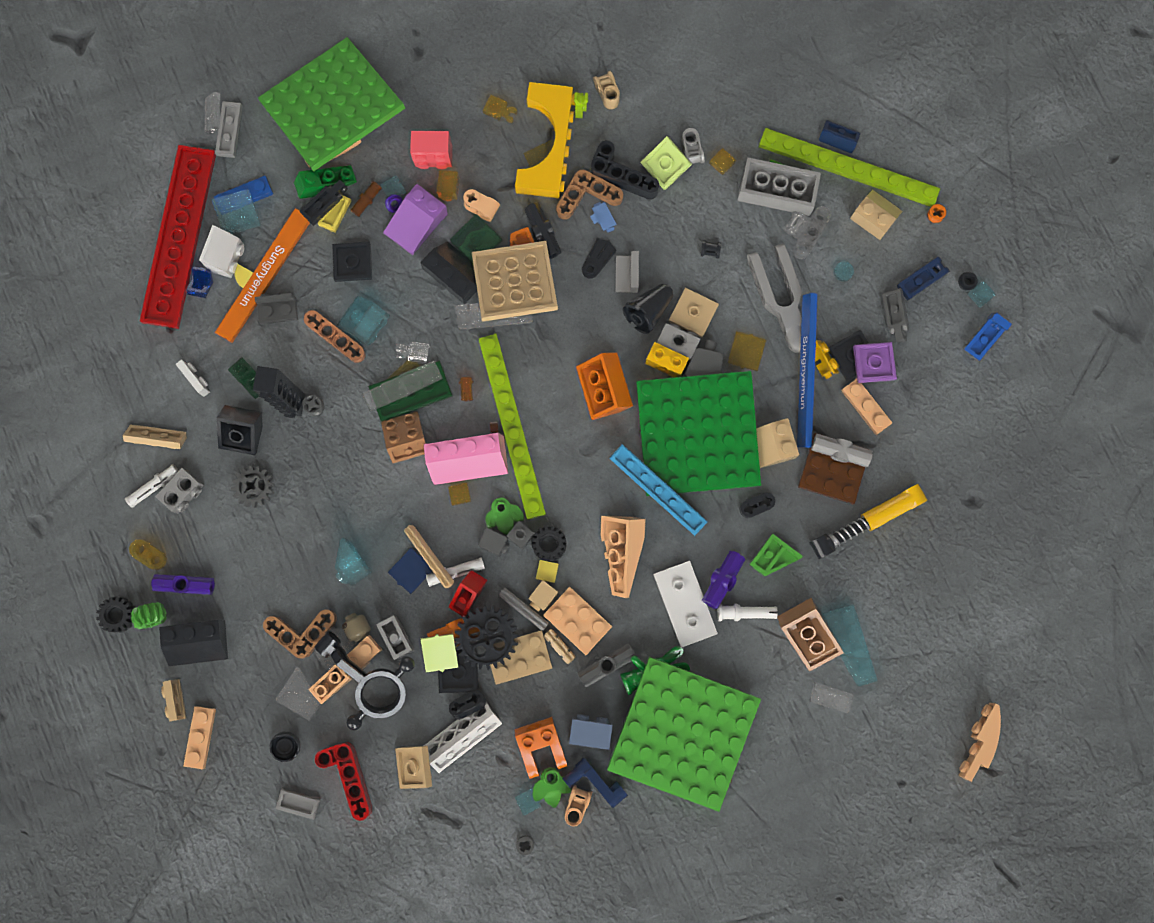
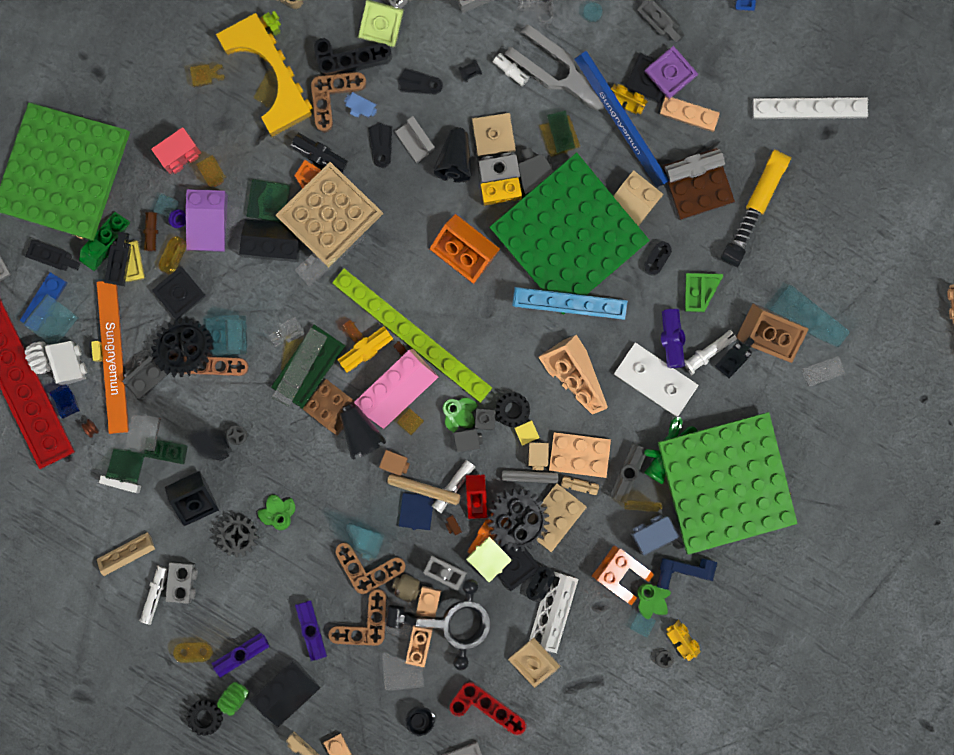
camera: 35 degrees left, 5 degrees up
(201, 231) = (38, 358): none -> white gear
(203, 317) = (90, 428): none -> copper bush
(207, 366) = (125, 466): none -> clear green piece
(241, 350) = (143, 432): none -> clear piece
(242, 275) = (95, 370): light yellow tile -> none
(248, 618) = (314, 643): none -> dark purple piece
(253, 261) = (97, 351): none -> light yellow tile
(275, 164) = (51, 256): none -> black hinge
(299, 487) = (276, 509): none -> bright green plate
(311, 310) = (200, 343): none -> black gear
(329, 590) = (362, 574): none -> medium nougat beam
(369, 228) = (172, 255): none -> clear yellow plate
(410, 471) = (359, 431): none -> black cone
(421, 518) = (394, 463): none -> medium nougat brick
(431, 603) = (452, 525): none -> reddish brown plate
(465, 410) = (365, 349): none -> yellow piece
(483, 206) = (253, 168): light nougat piece -> none
(553, 850) = (679, 632): none -> yellow hinge
(577, 804) = (683, 597): light nougat piece -> none
(599, 701) = (642, 505): none -> clear yellow piece
(663, 231) = (417, 82): none -> black piece
(744, 271) = (511, 69): none -> white pin
(750, 347) = (560, 131): none -> clear green slope
(764, 632) = (735, 357): none -> black hinge
(971, 472) = (810, 108): none -> white plate

